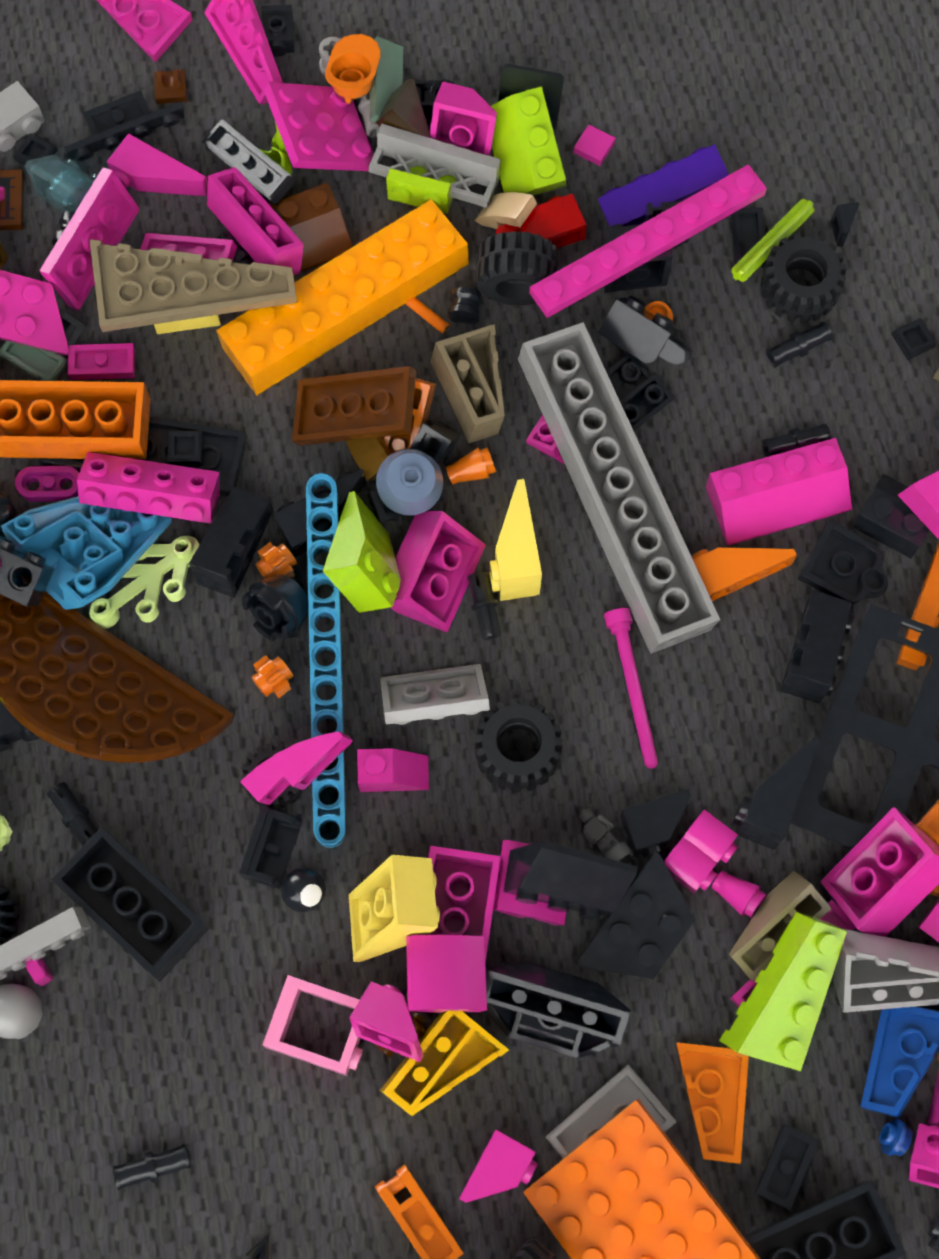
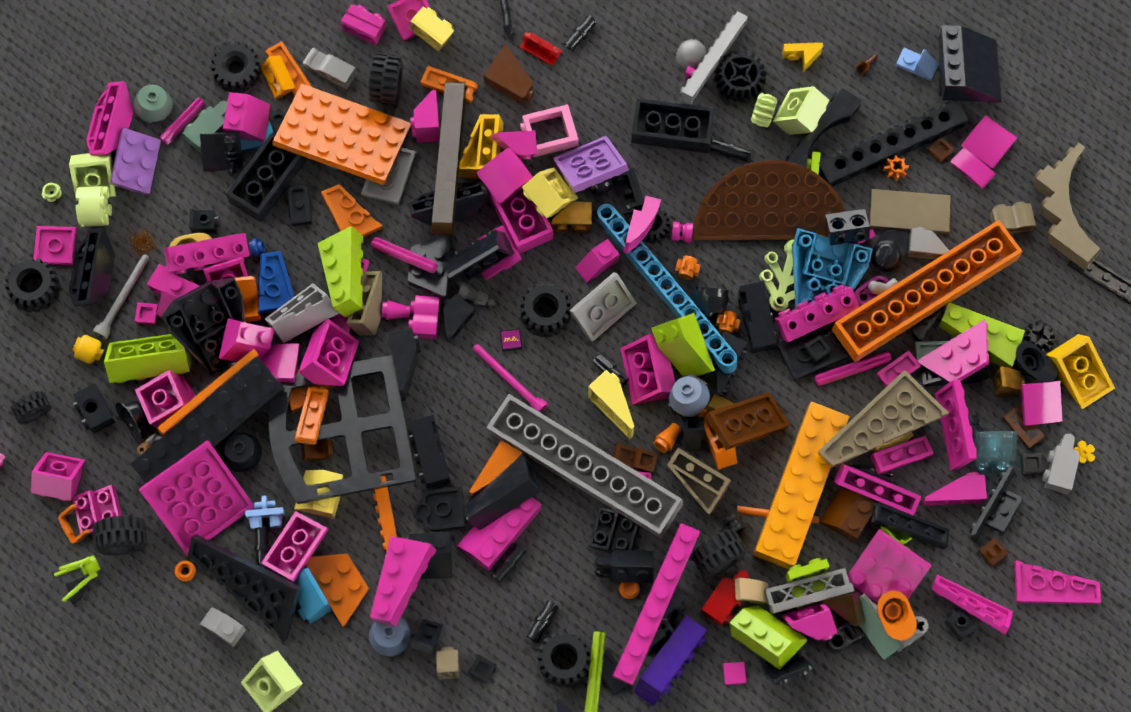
camera: 145 degrees right, 0 degrees up
(32, 467) = (878, 287): none -> light grey arm
(183, 409) = (853, 368): none -> dark pink axle
(232, 1184) = (540, 48): none -> red hinge
(239, 734) = (686, 232): none -> dark pink wheel
(298, 920) = (590, 164): none -> medium lavender plate
(316, 1163) = (509, 77): none -> reddish brown slope
(369, 852) = (574, 217): none -> pearl gold slope
(509, 1070) = (449, 158): none -> beam
(540, 477) = (636, 459): none -> reddish brown slope
(594, 741) = (511, 340): none -> magenta tile
(675, 964) = (404, 255): none -> dark pink axle
(749, 518) = (504, 493): none -> black slope

